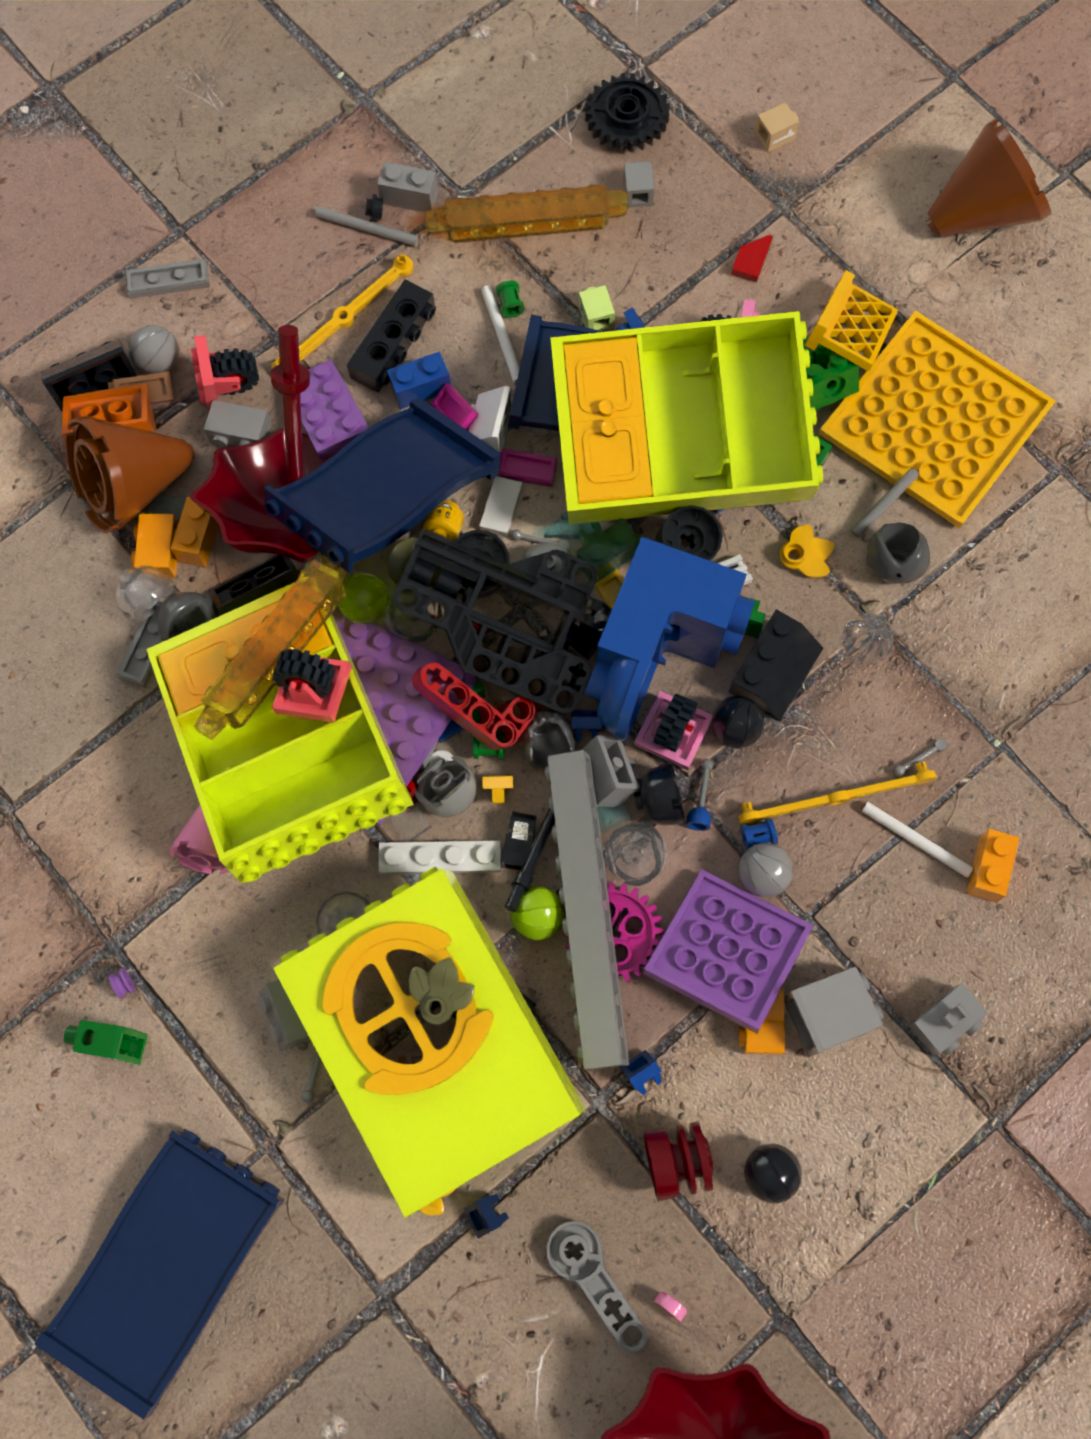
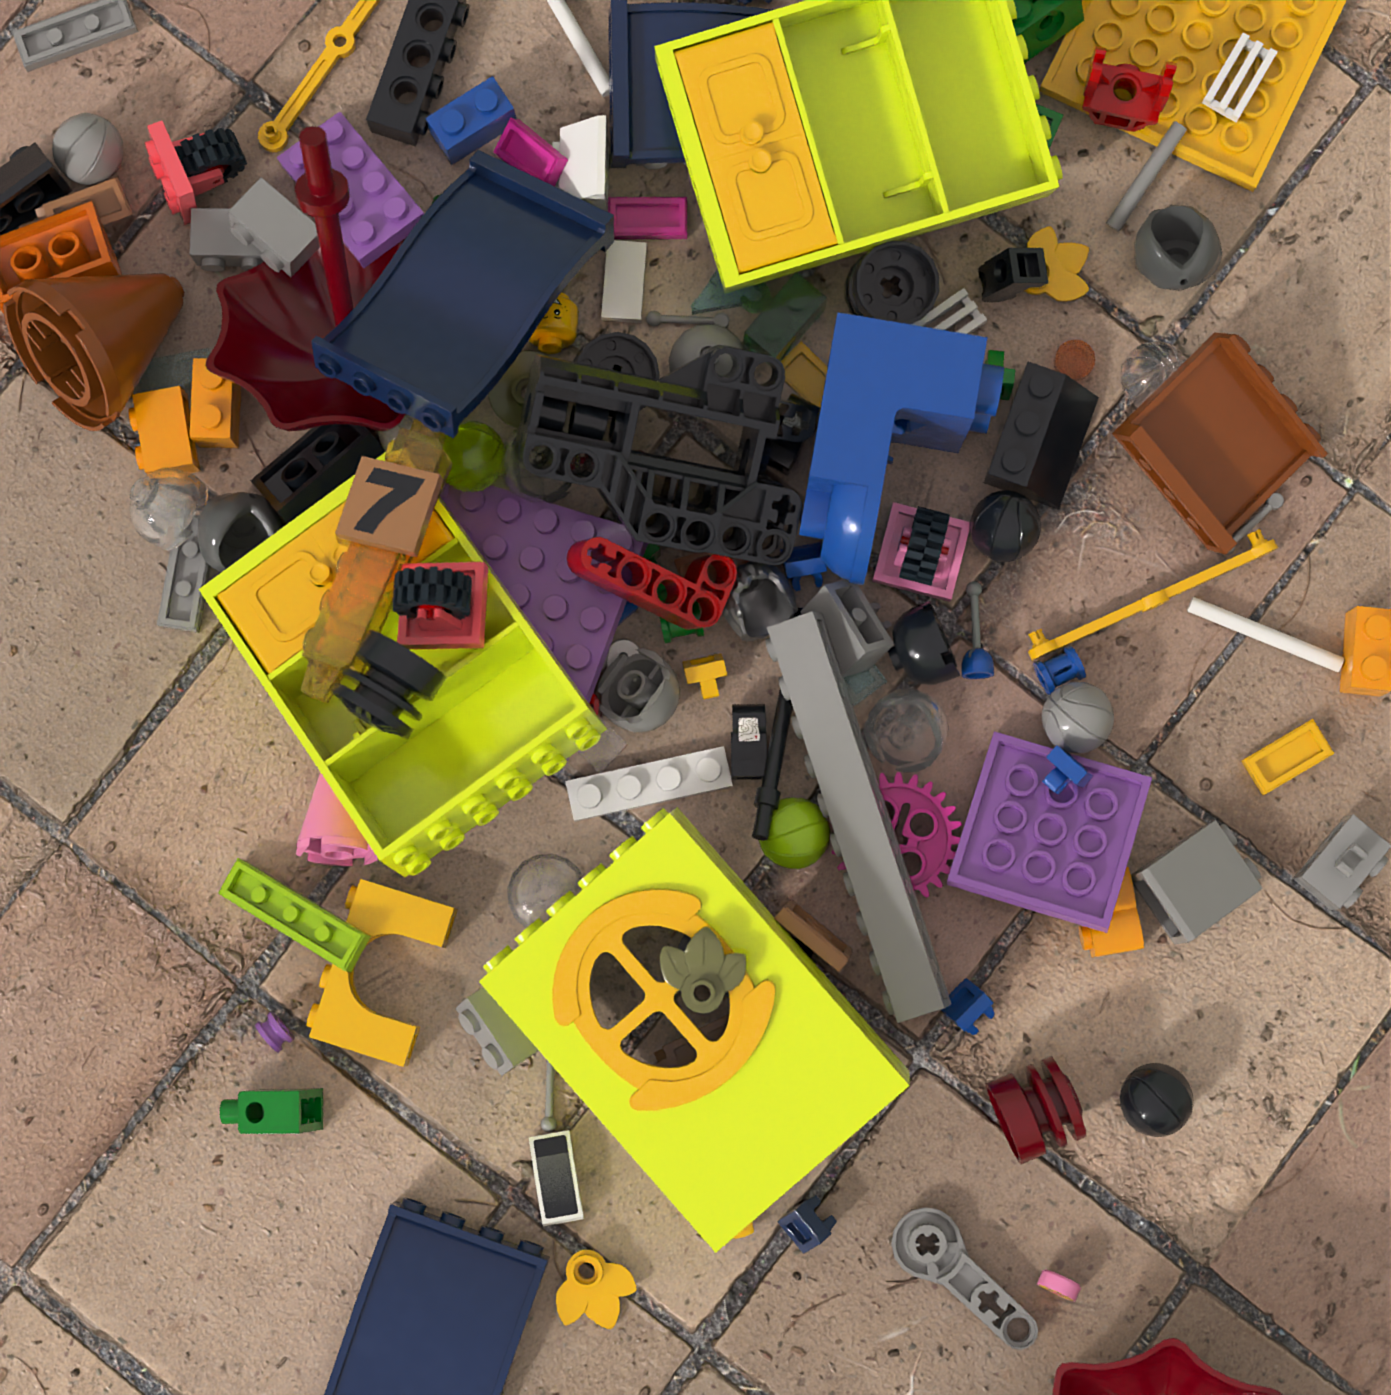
camera: 10 degrees left, 10 degrees up
(158, 899) = (294, 915): none -> lime tile
(174, 979) = (342, 1015): none -> yellow arch
(256, 731) = (388, 684): none -> black wheel
(262, 417) = (274, 227): none -> light grey brick
(290, 609) = (389, 506): none -> medium nougat tile
(302, 1138) = (556, 1178): none -> slope
(311, 1237) = (593, 1295): none -> yellow plate
(536, 991) = (814, 935): none -> medium nougat tile
(748, 906) = (1066, 770): none -> blue tile
(776, 547) = (1012, 273): none -> black leg
(811, 617) = (1074, 359): none -> clear orange tile
(893, 441) = (1147, 91): none -> red piece
(905, 690) = (1218, 439): none -> dark orange panel
(918, 933) = (1287, 757): none -> yellow tile
(976, 431) = (1255, 50): none -> white tile

